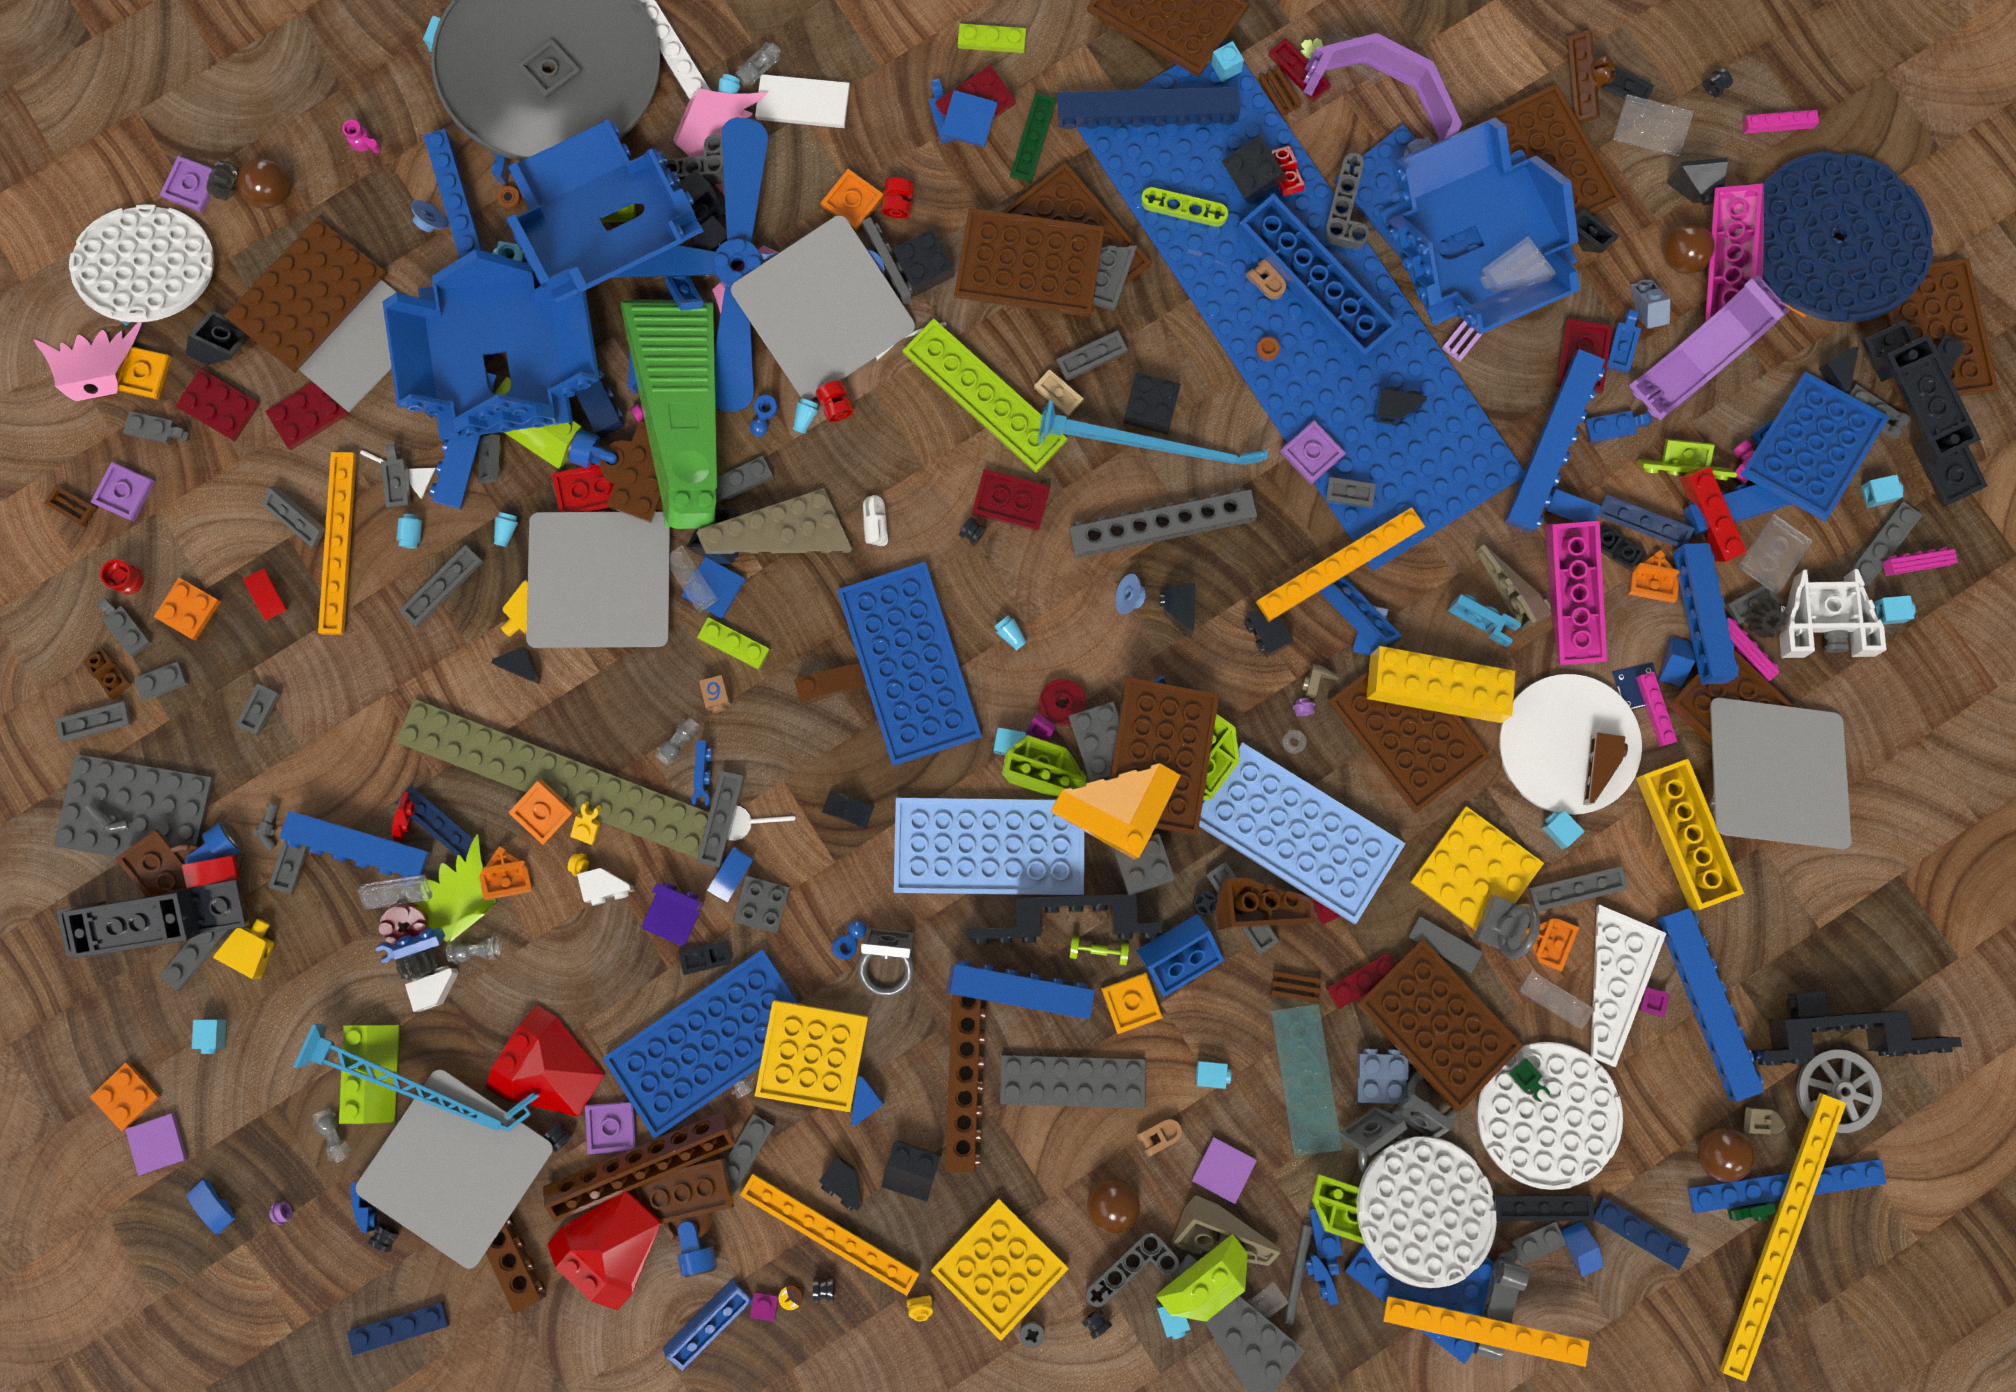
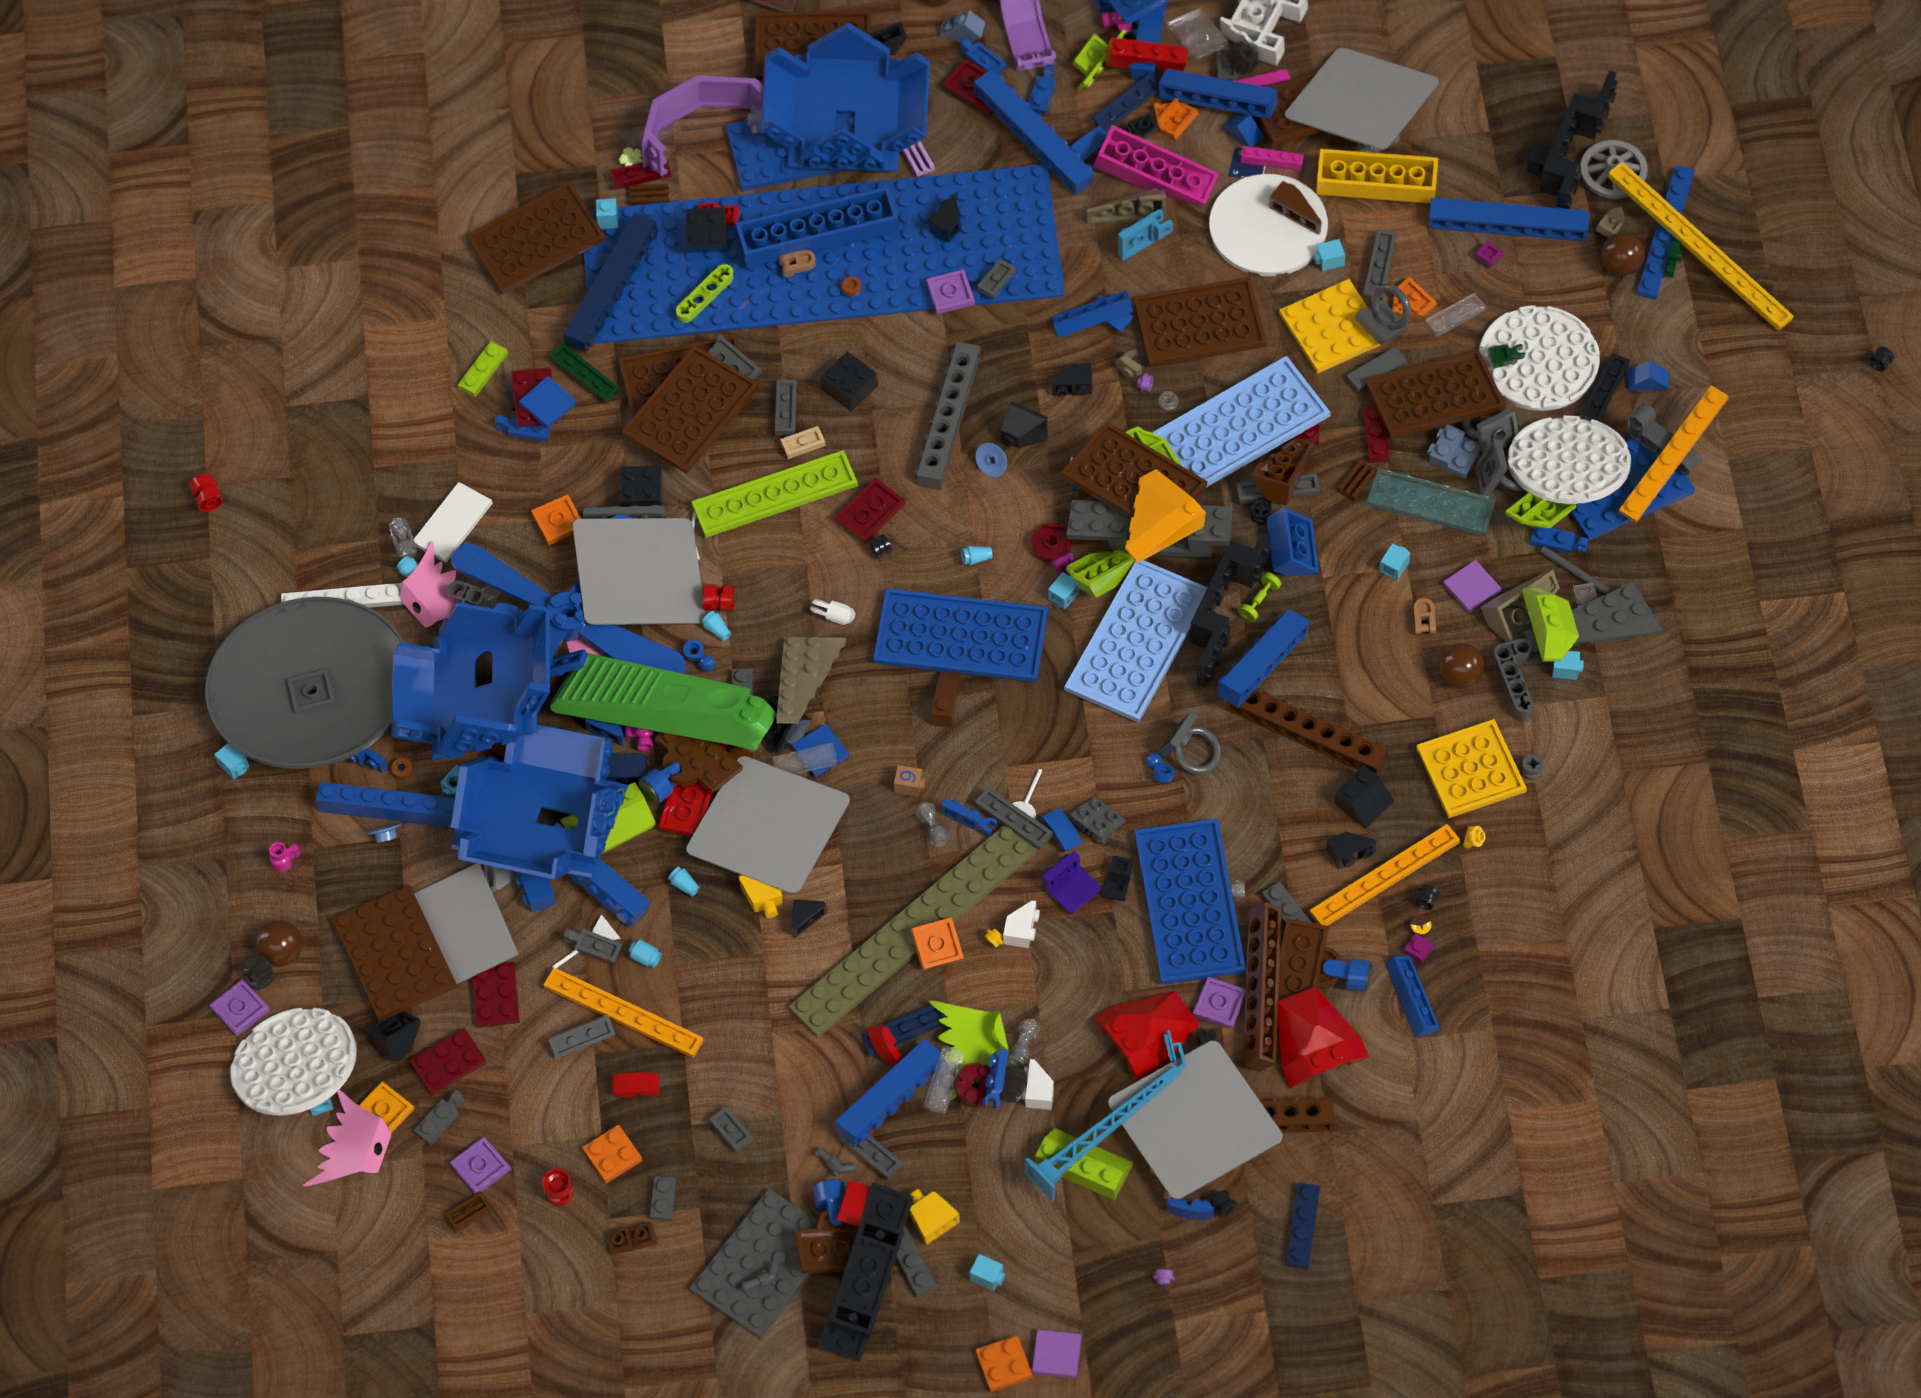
camera: 65 degrees left, 20 degrees down
(93, 721) = (669, 1262): dark grey plate -> none
(124, 627) = (600, 1209): dark grey plate -> none
(212, 1210) = (1131, 1327): slope -> none
(326, 1125) = (1111, 1210): clear piece -> none
(441, 586) = (705, 948): dark grey plate -> none
(489, 459) = (624, 868): dark grey plate -> none
(504, 876) = (974, 994): orange slope -> none
(585, 824) = (966, 918): yellow plate -> none
(733, 643) = (874, 755): lime plate -> none
(811, 1055) = (1238, 827): yellow plate -> none
(848, 809) = (1053, 727): black slope -> none
(865, 1100) = (1292, 807): blue slope -> none
(897, 199) = (575, 484): red wheel -> none
(1060, 425) = (827, 449): dark azure piece -> none
(1072, 1081) = (1351, 660): dark grey plate -> none
(1096, 1323) = (1545, 718): black wheel -> none
(1131, 1003) = (1312, 595): light orange tile -> none
(1319, 1273) = (1578, 552): blue slope -> none
(1340, 564) = (1049, 308): light orange plate -> none
(1347, 199) = (748, 169): dark grey beam -> none
(1441, 684) = (1178, 281): yellow brick -> none
(1517, 268) = (888, 92): clear slope -> none
(1534, 1244) = (1628, 402): dark grey plate -> none
(1622, 969) = (1453, 262): white wing -> none
(1640, 1233) = (1655, 337): dark blue plate -> none
(1836, 641) = (1283, 25): dark grey wheel -> none

